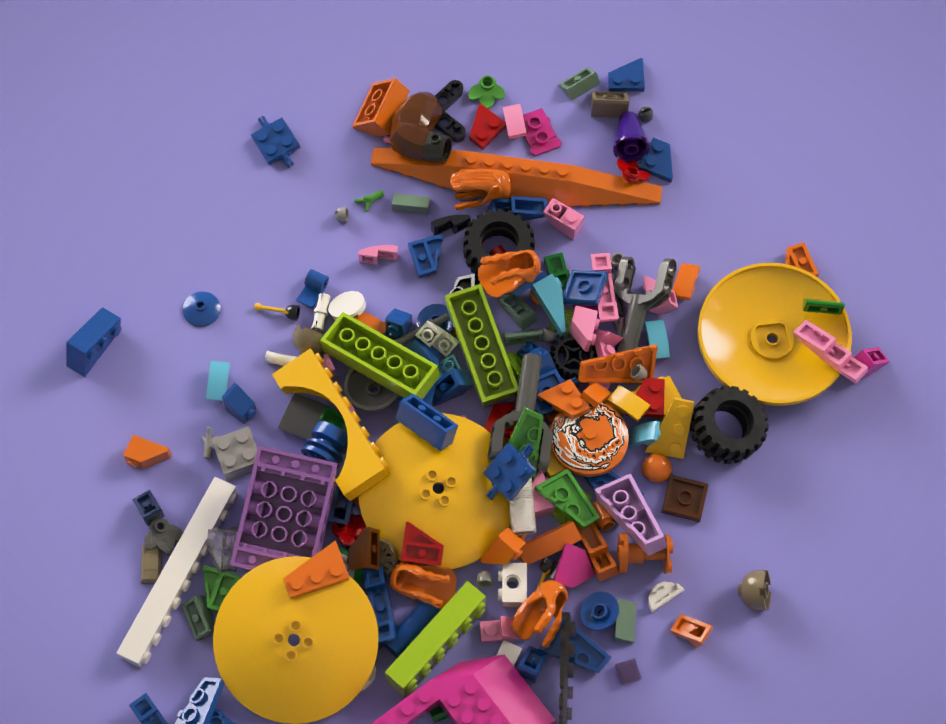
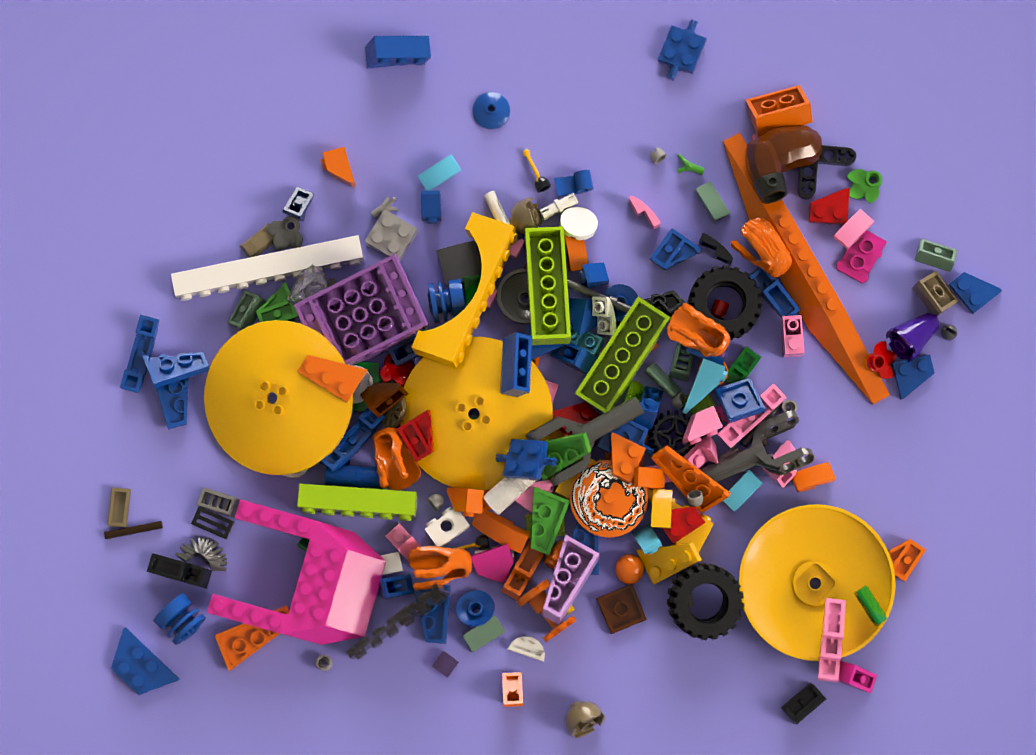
camera: 55 degrees right, 15 degrees up
(864, 414) = (803, 703): none -> black hinge

